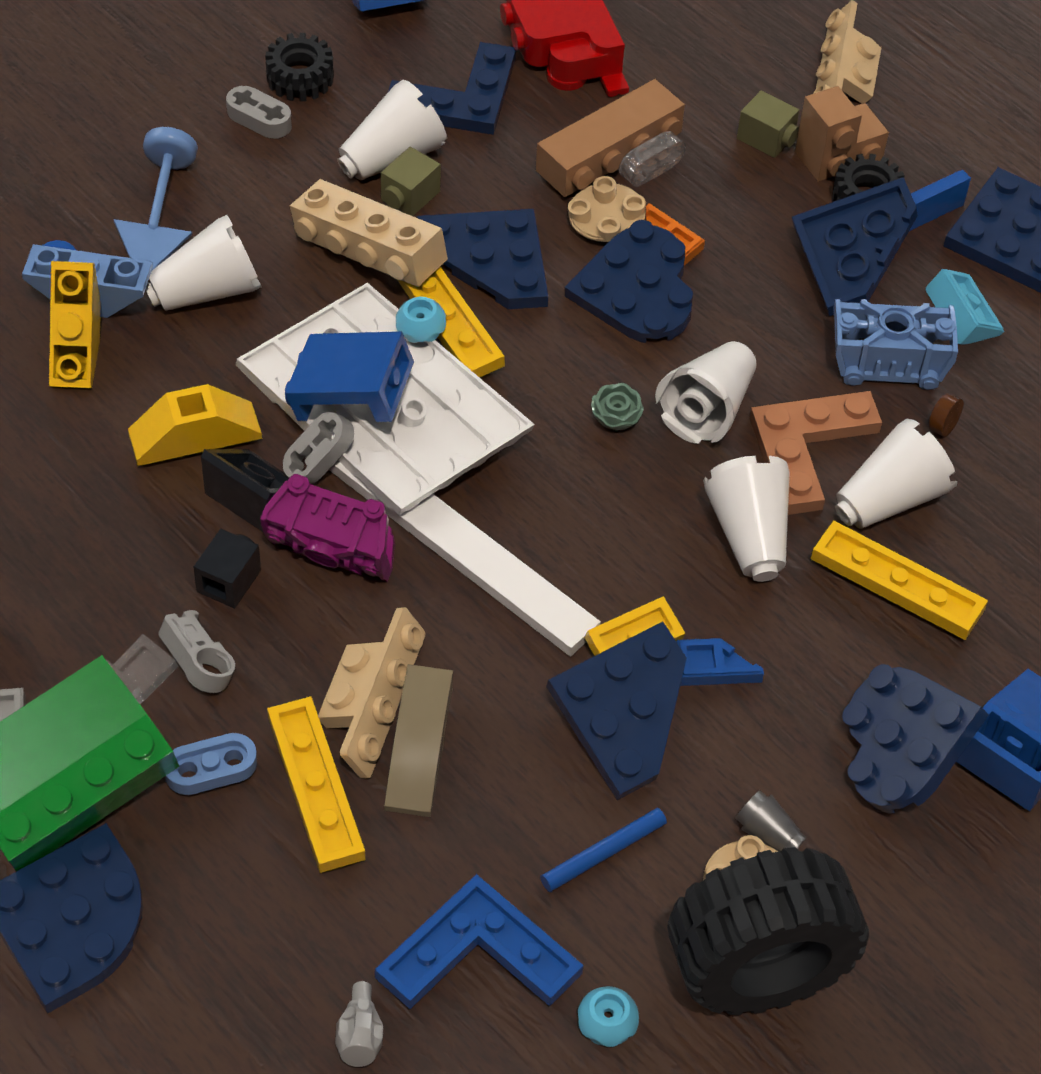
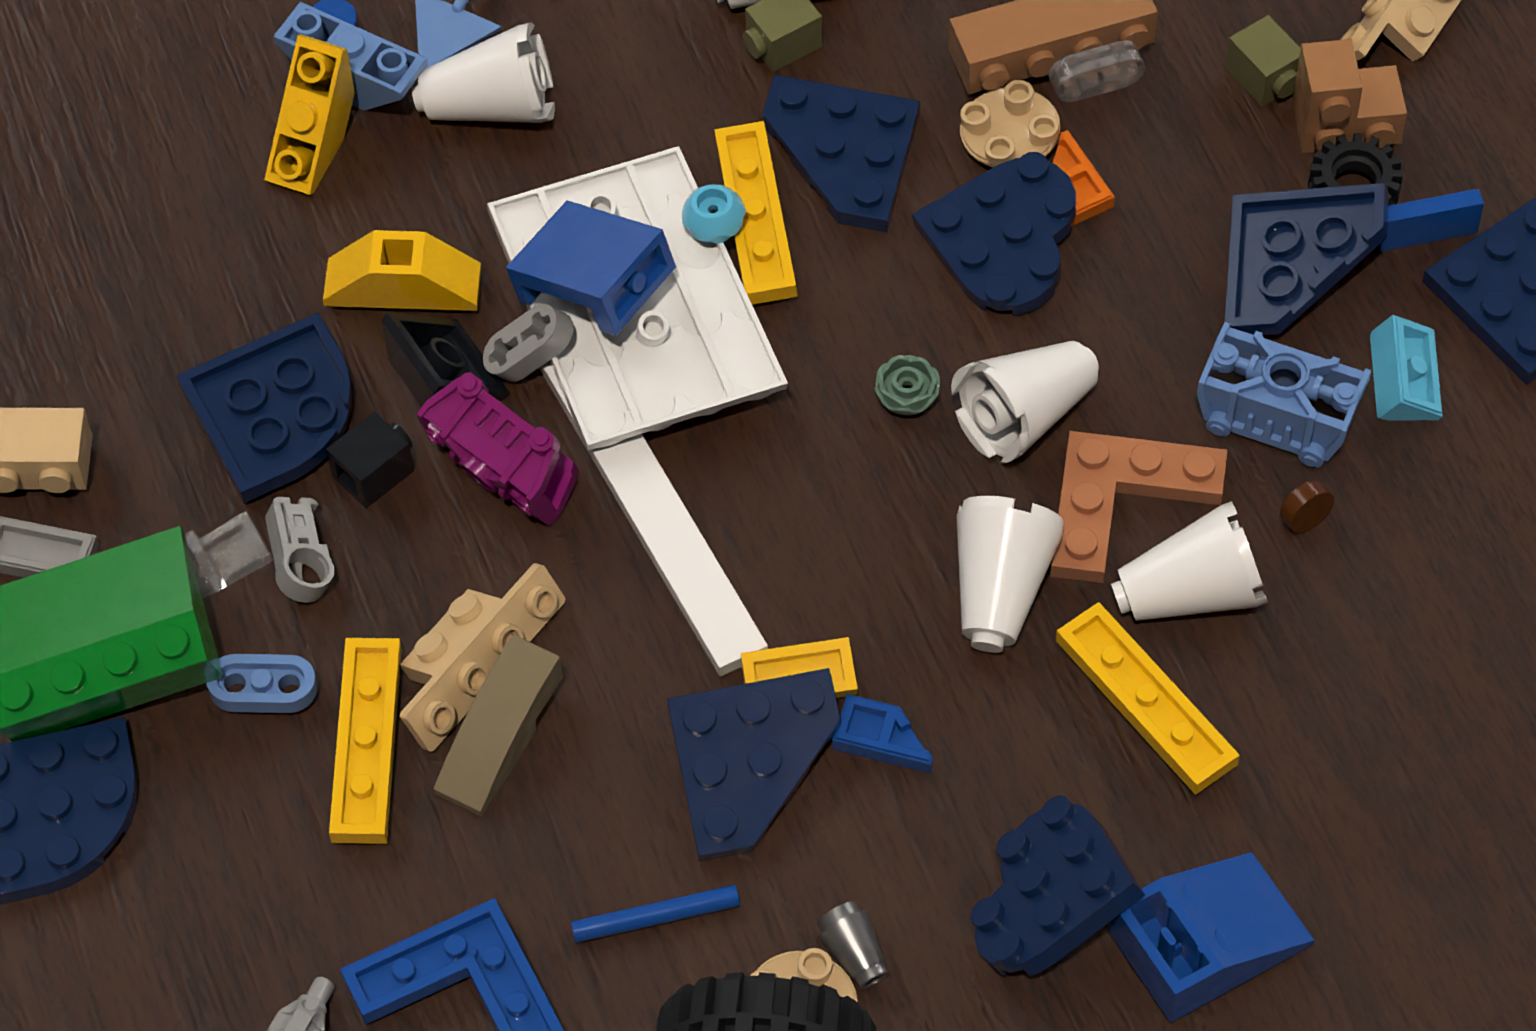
camera: 25 degrees right, 5 degrees up
(128, 549) = (272, 405): none -> dark blue plate
(369, 232) = (698, 85): tan brick -> none

